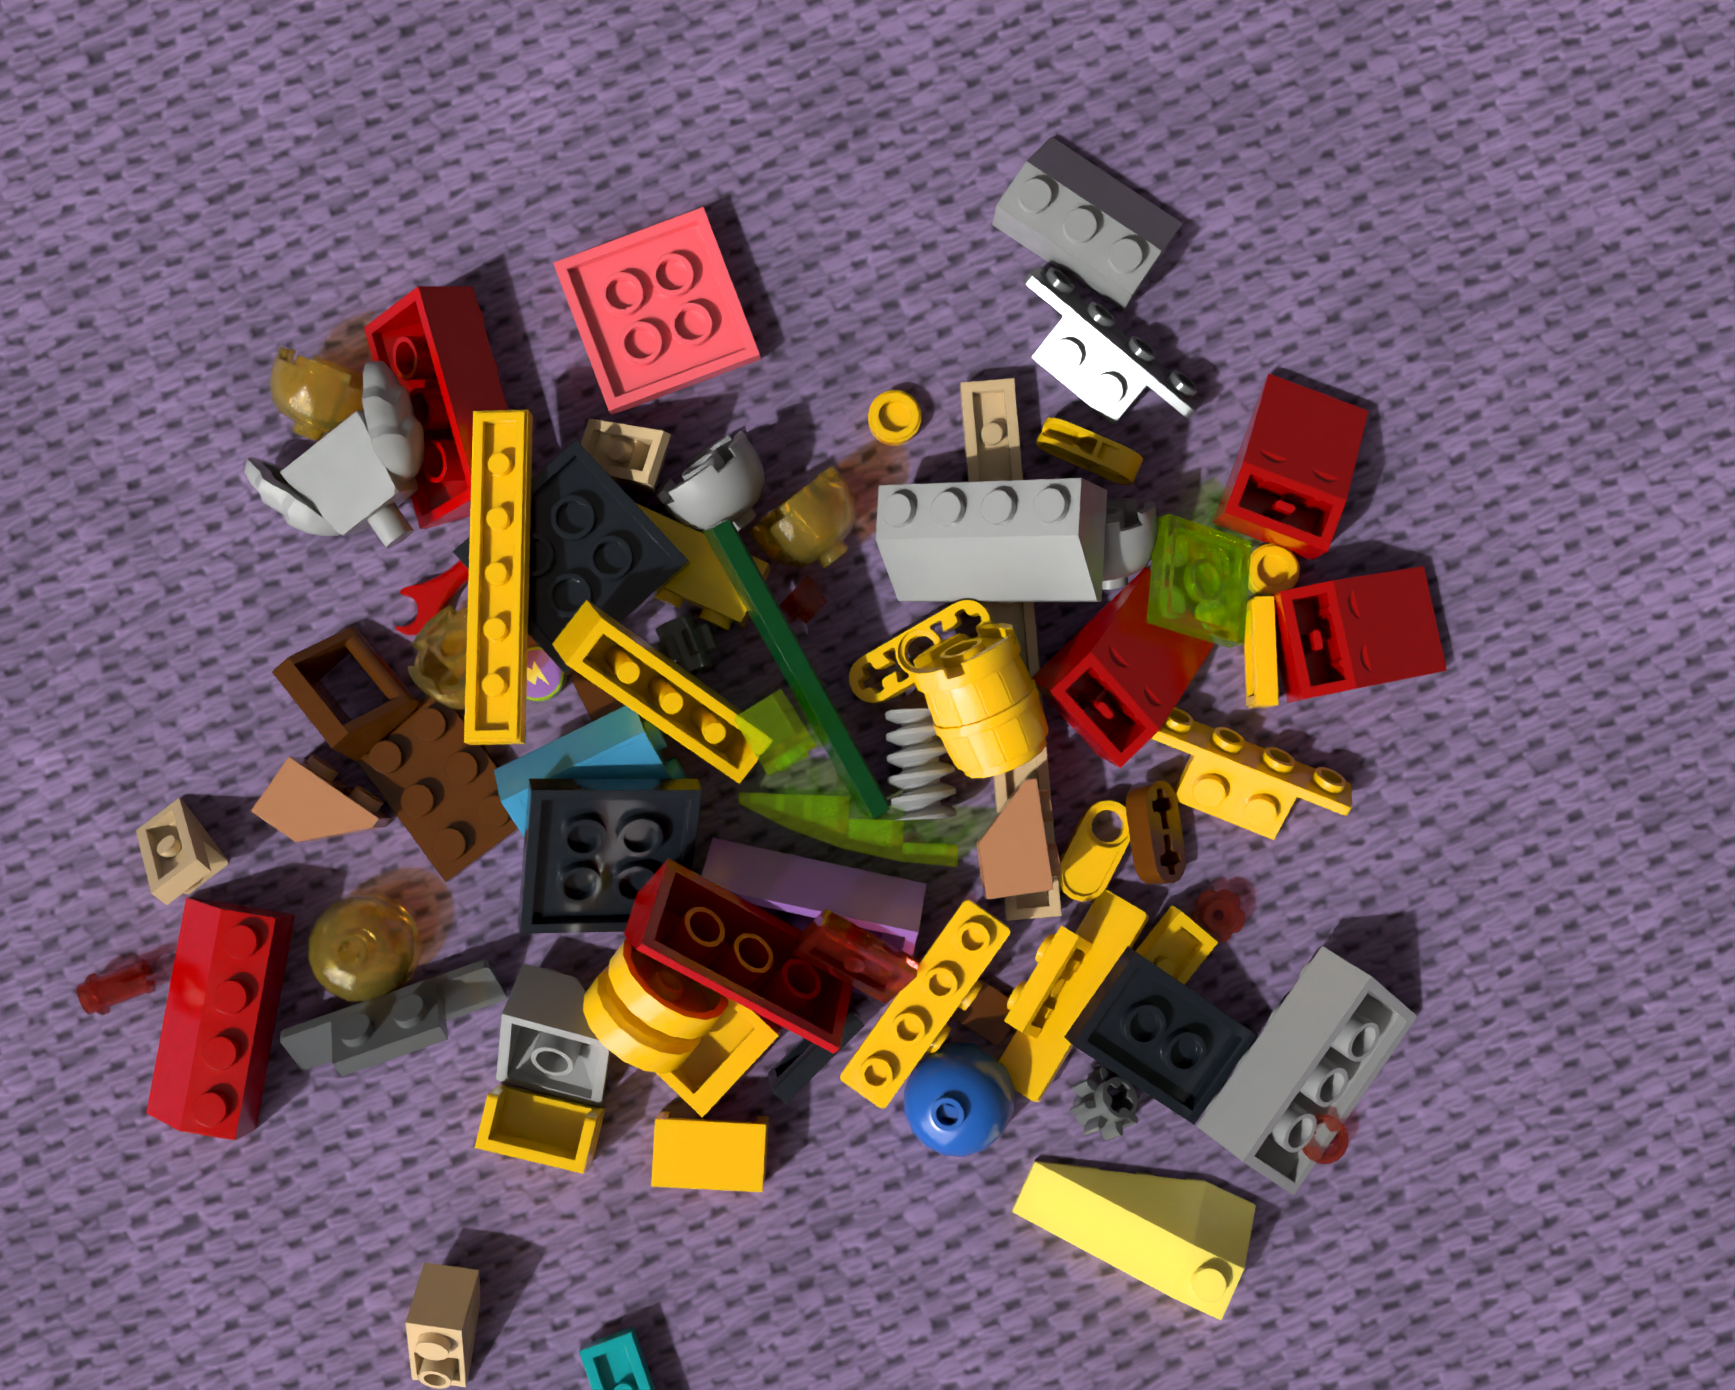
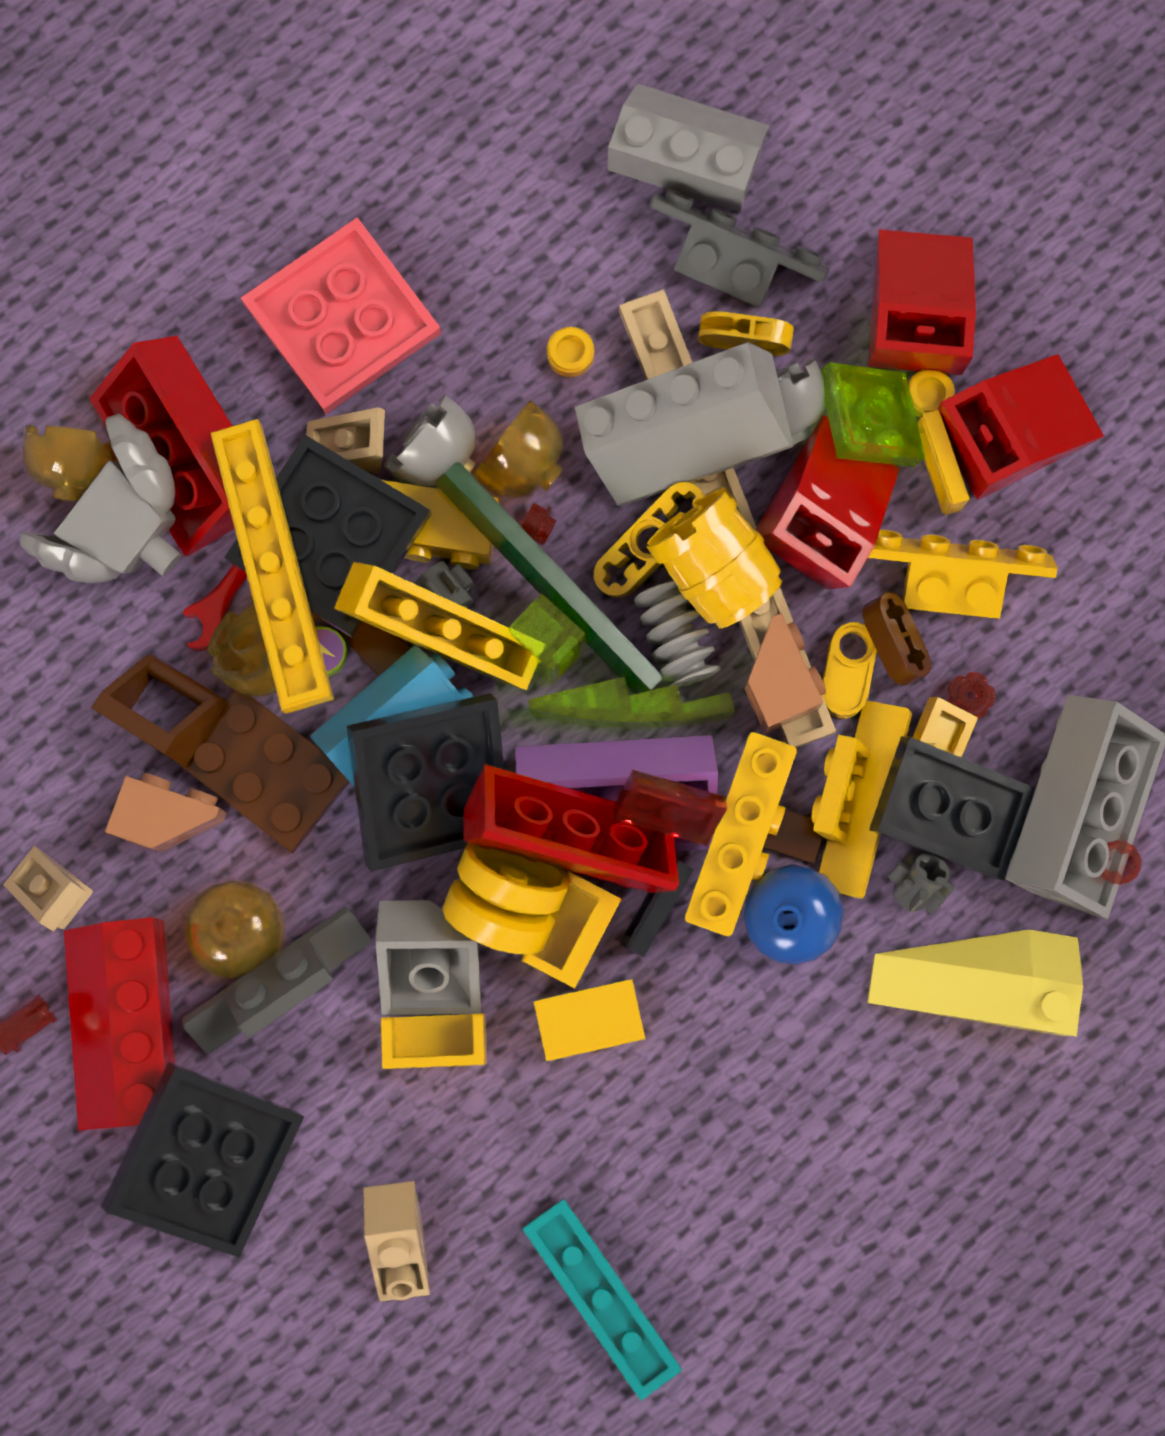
camera: 15 degrees left, 5 degrees down
(260, 1190) = (202, 1161): none -> black plate

